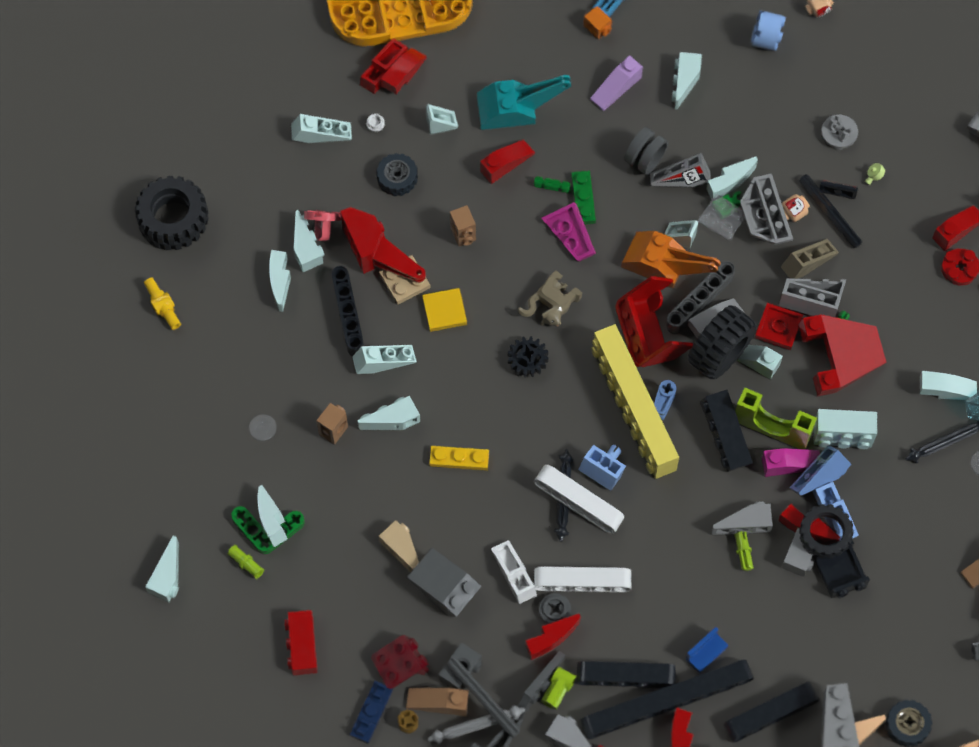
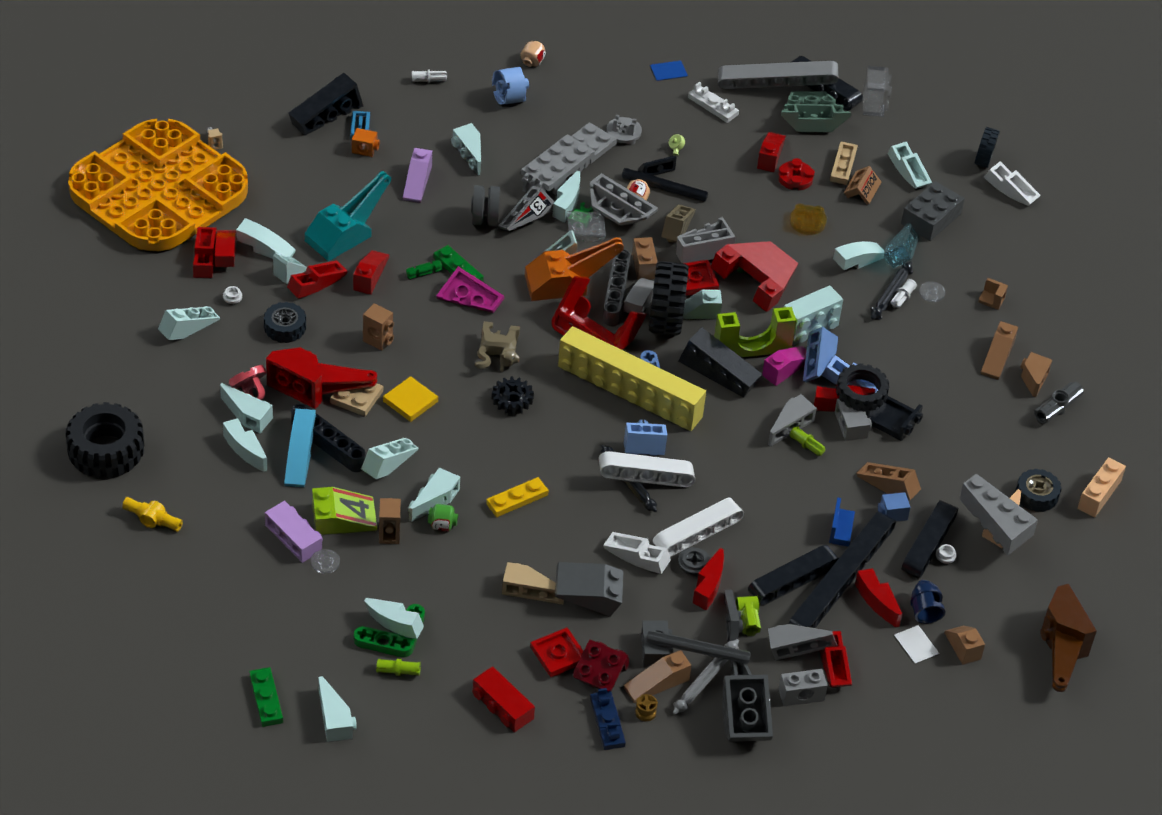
camera: 40 degrees left, 20 degrees down
(130, 524) = (266, 697): none -> green plate
(257, 385) = (293, 531): none -> lavender brick
(307, 388) = (342, 511): none -> lime slope
(316, 308) = (300, 448): none -> medium azure slope
(378, 625) = (557, 651): none -> red plate
(382, 442) = (442, 517): none -> bright green head
(438, 82) = (262, 239): none -> light aqua slope
(455, 144) = (316, 278): none -> red slope
(747, 281) = (644, 258): none -> medium nougat brick
(760, 137) = (566, 157): none -> light grey piece
(764, 662) = (895, 506): none -> medium blue brick
(774, 735) = (946, 554): none -> white plate
(783, 633) = (890, 479): none -> medium nougat slope
(933, 321) = (808, 219): none -> clear yellow tile
(935, 85) = (668, 70): none -> blue sticker
(946, 145) = (713, 103): none -> white plate
(955, 450) = (903, 293): none -> white axle

